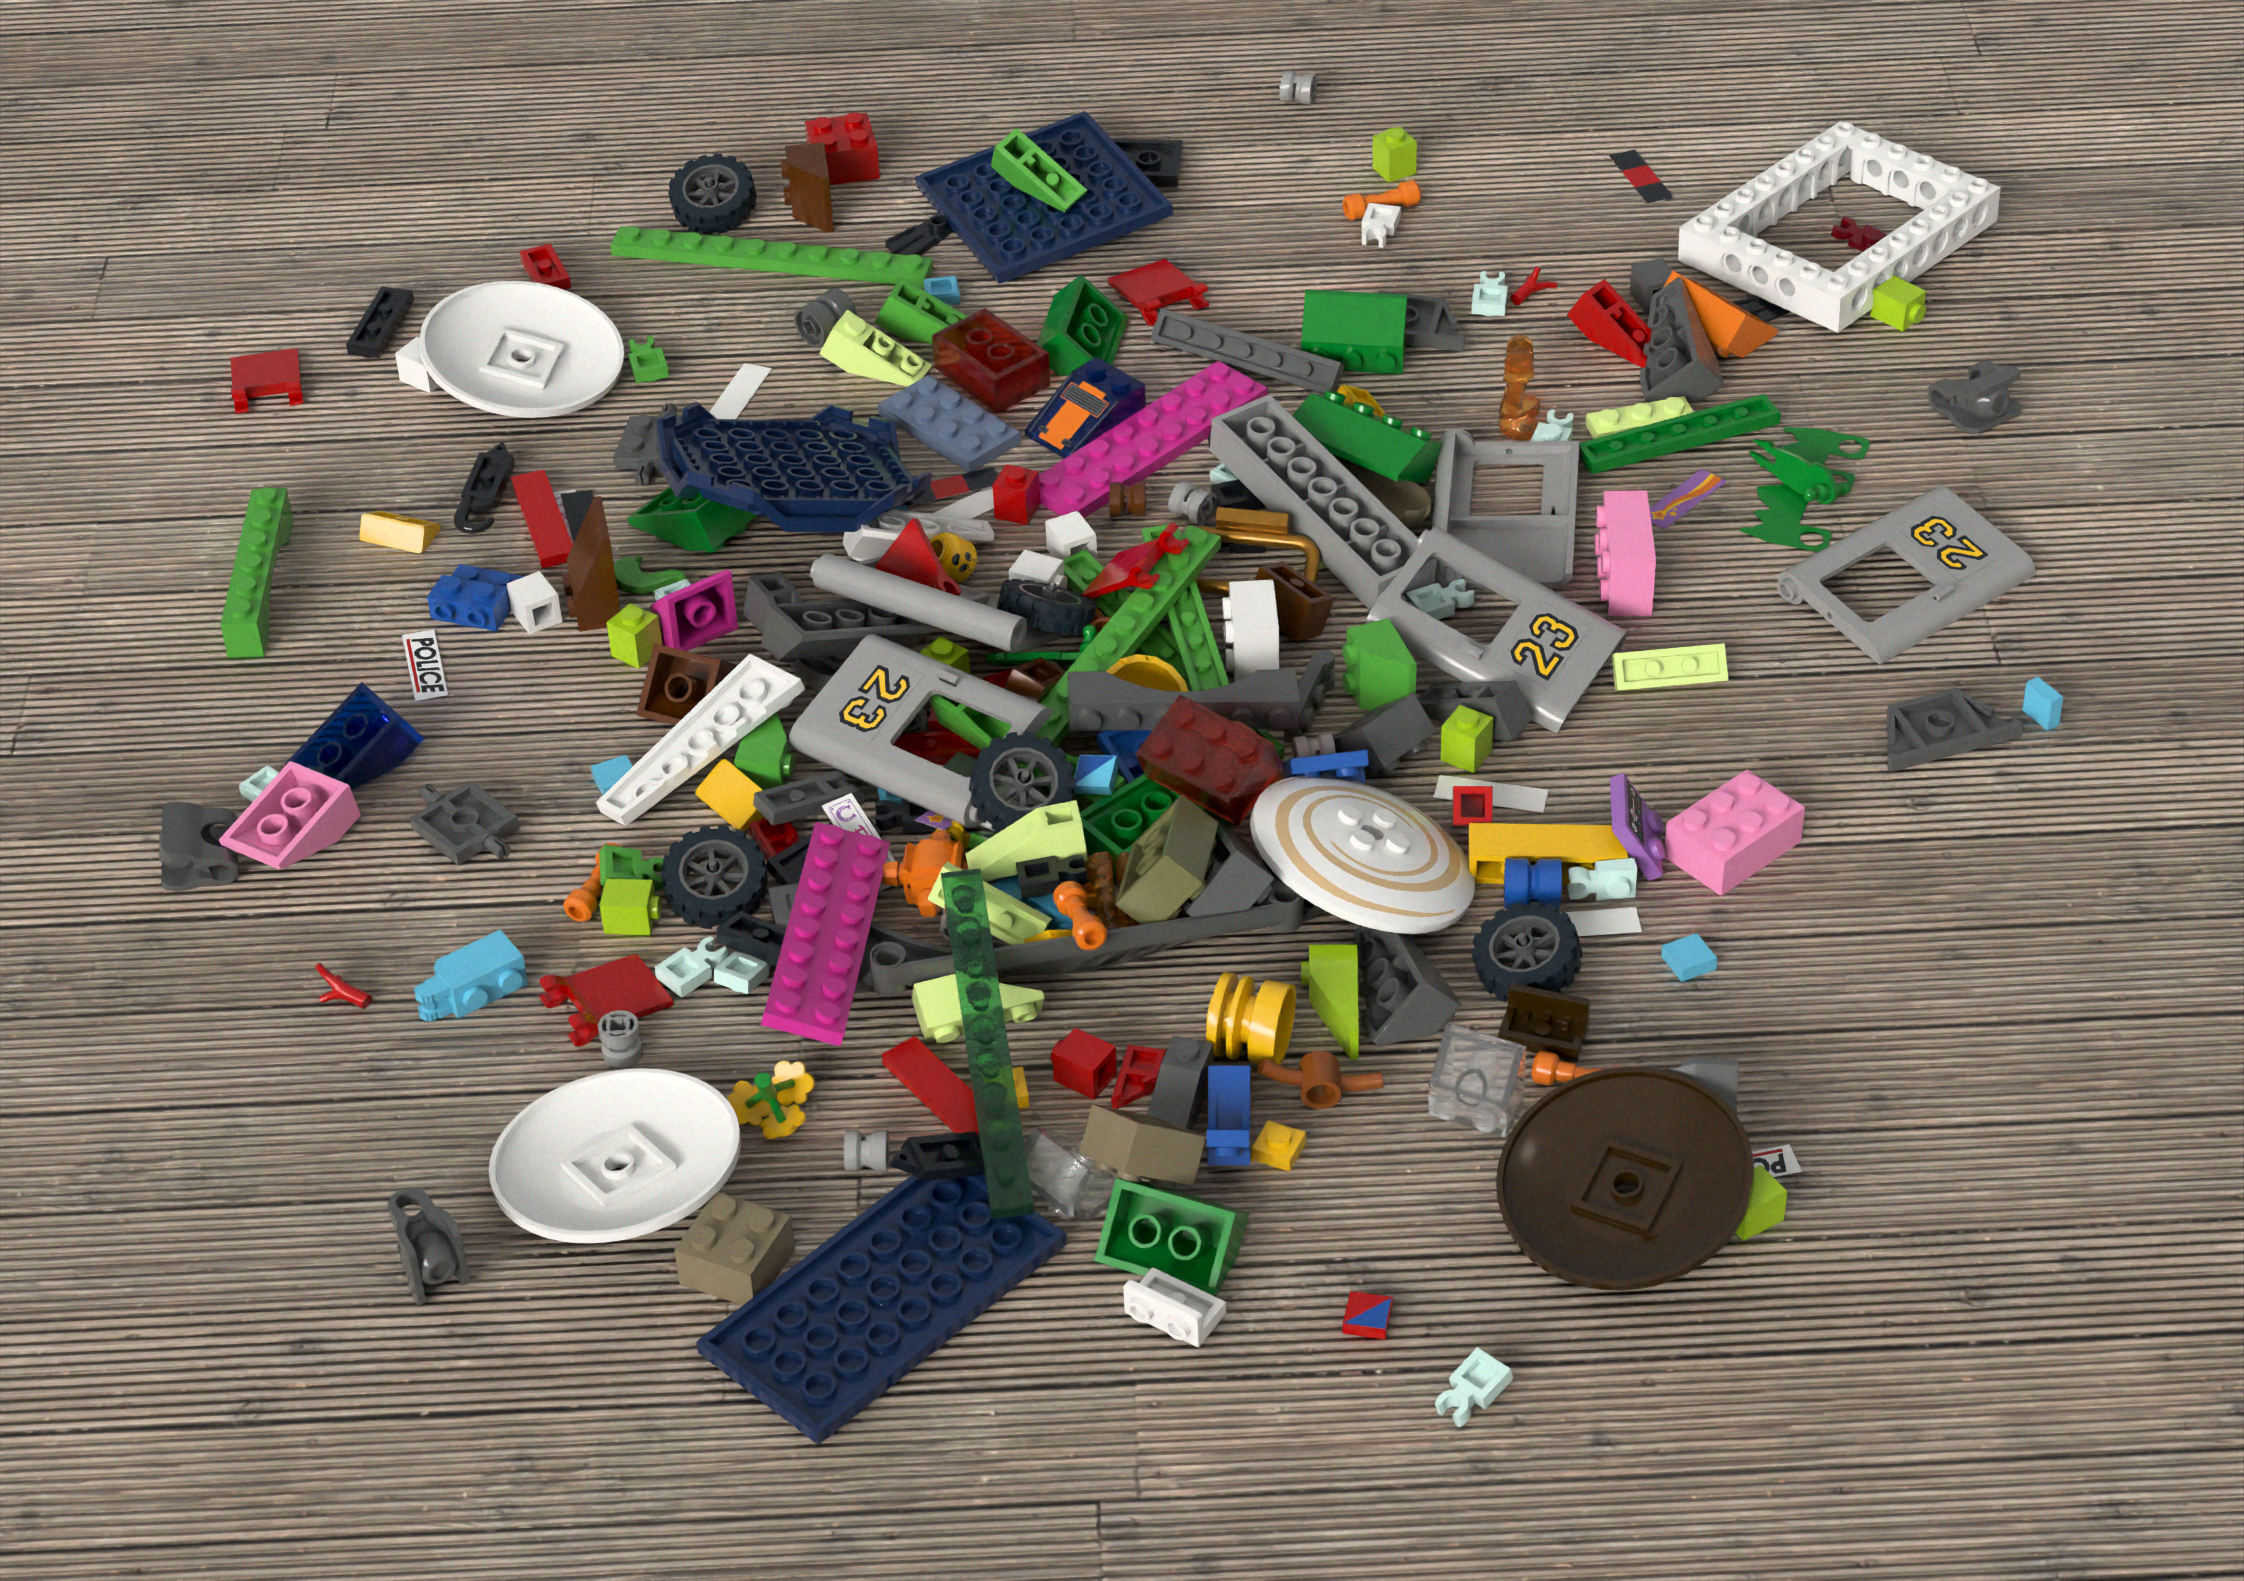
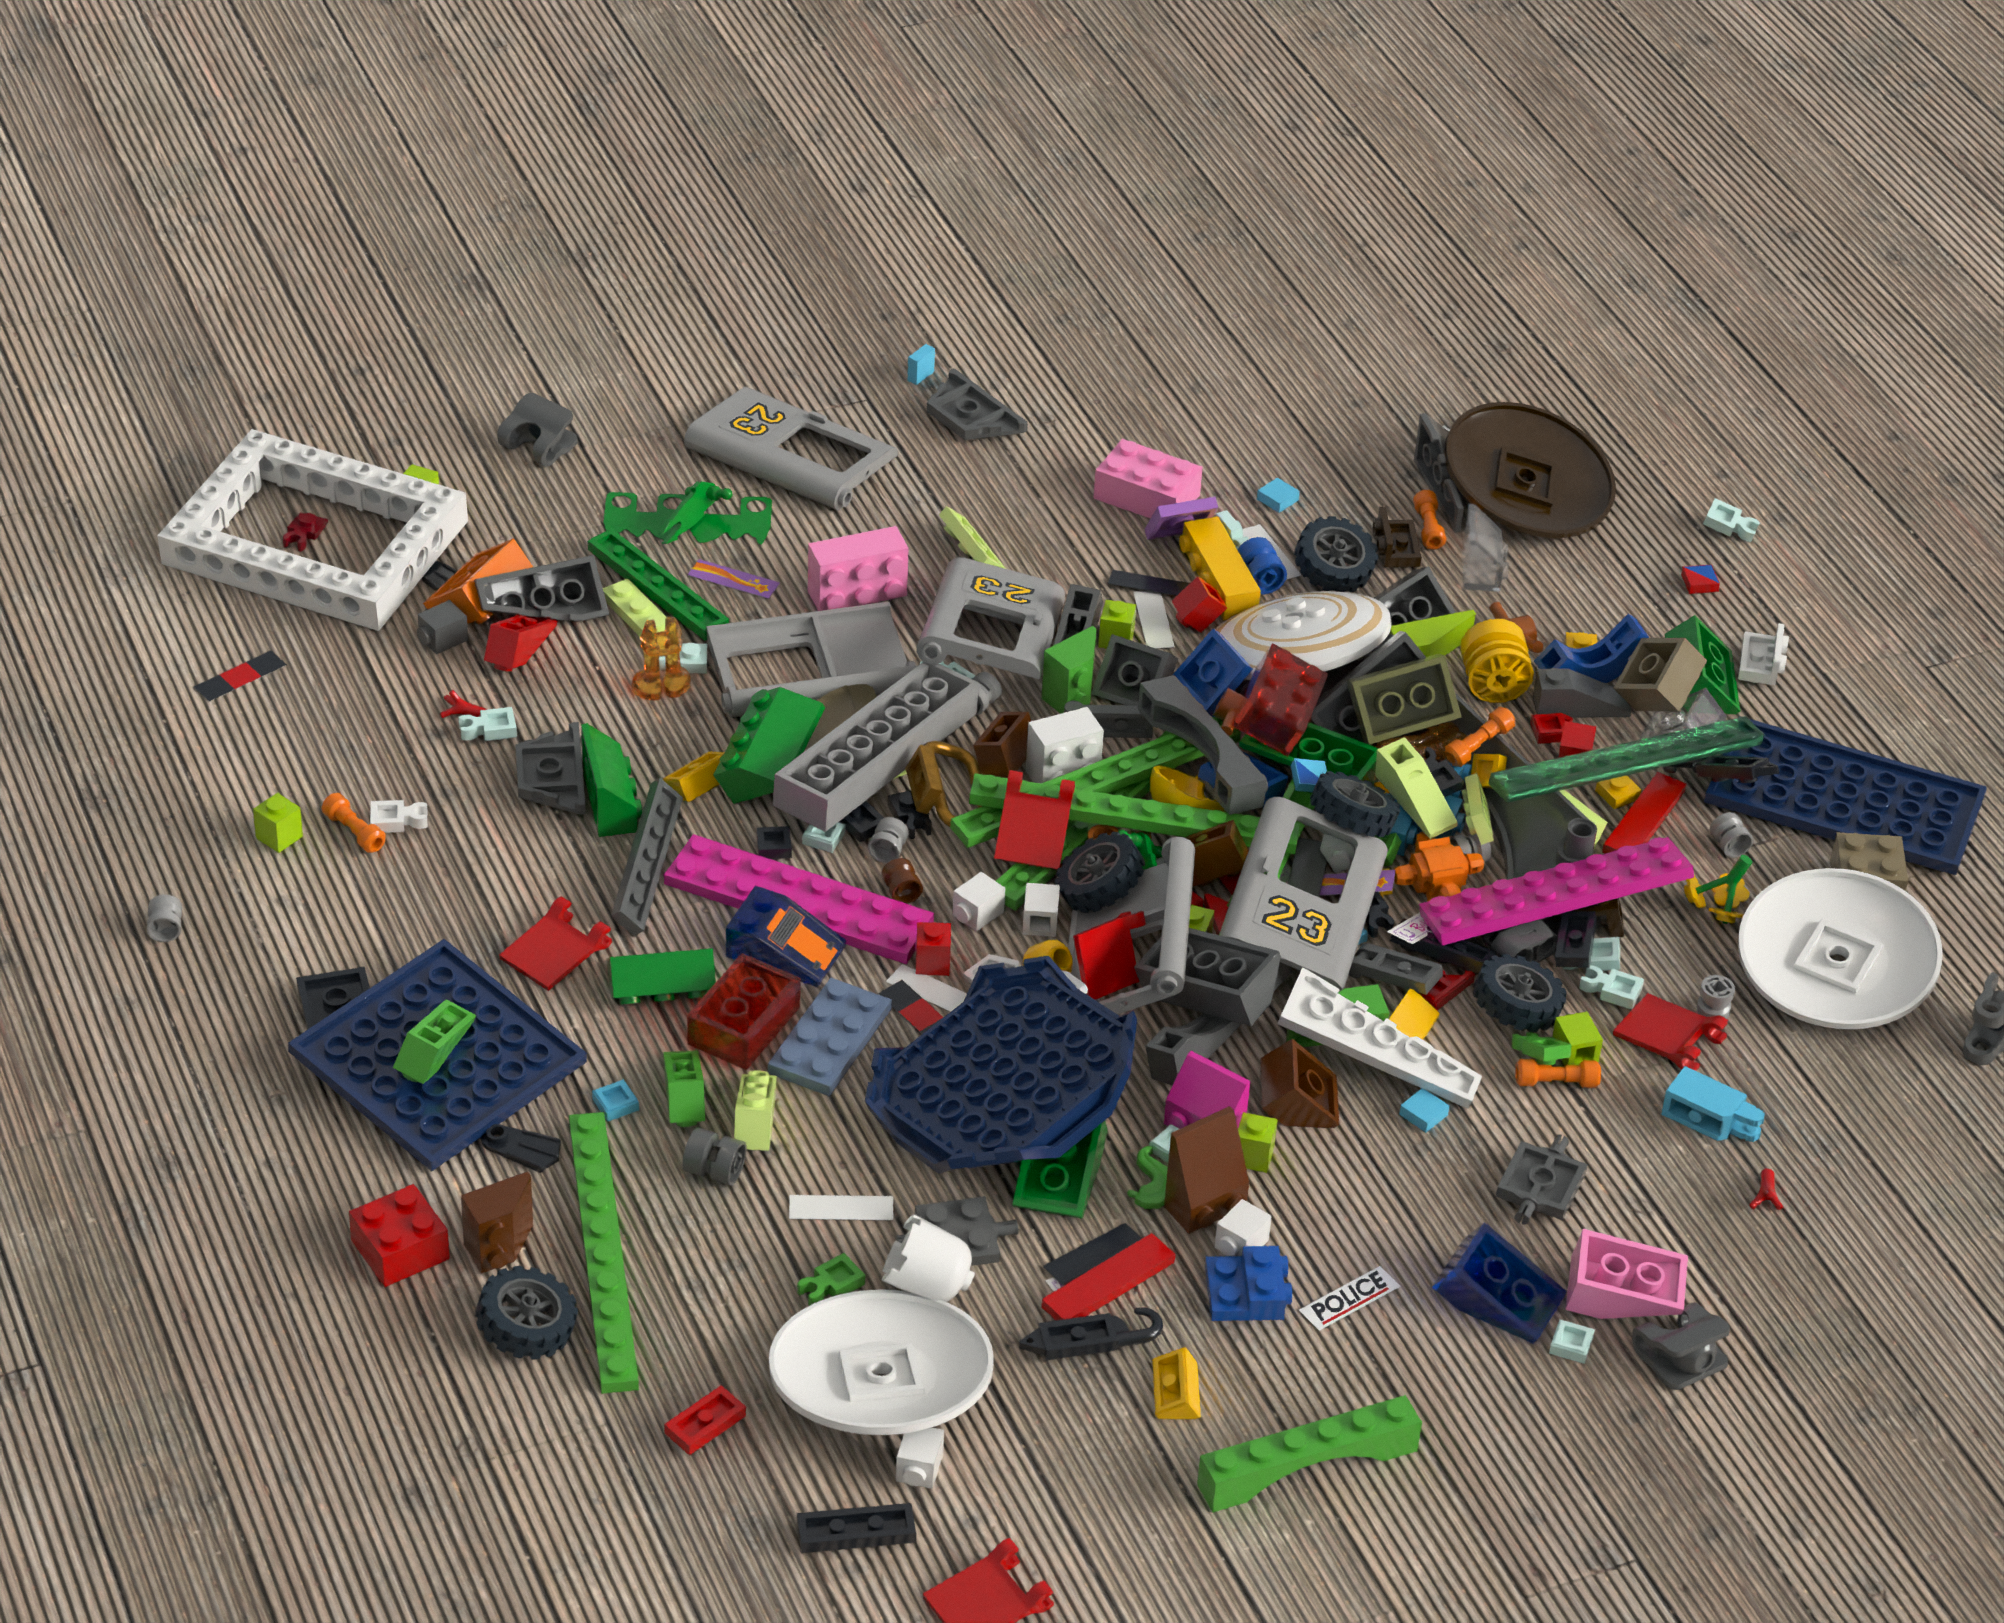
camera: 115 degrees left, 0 degrees up
(609, 391) = (929, 1262): none -> white cylinder
(1560, 799) = (1147, 582): none -> black sticker

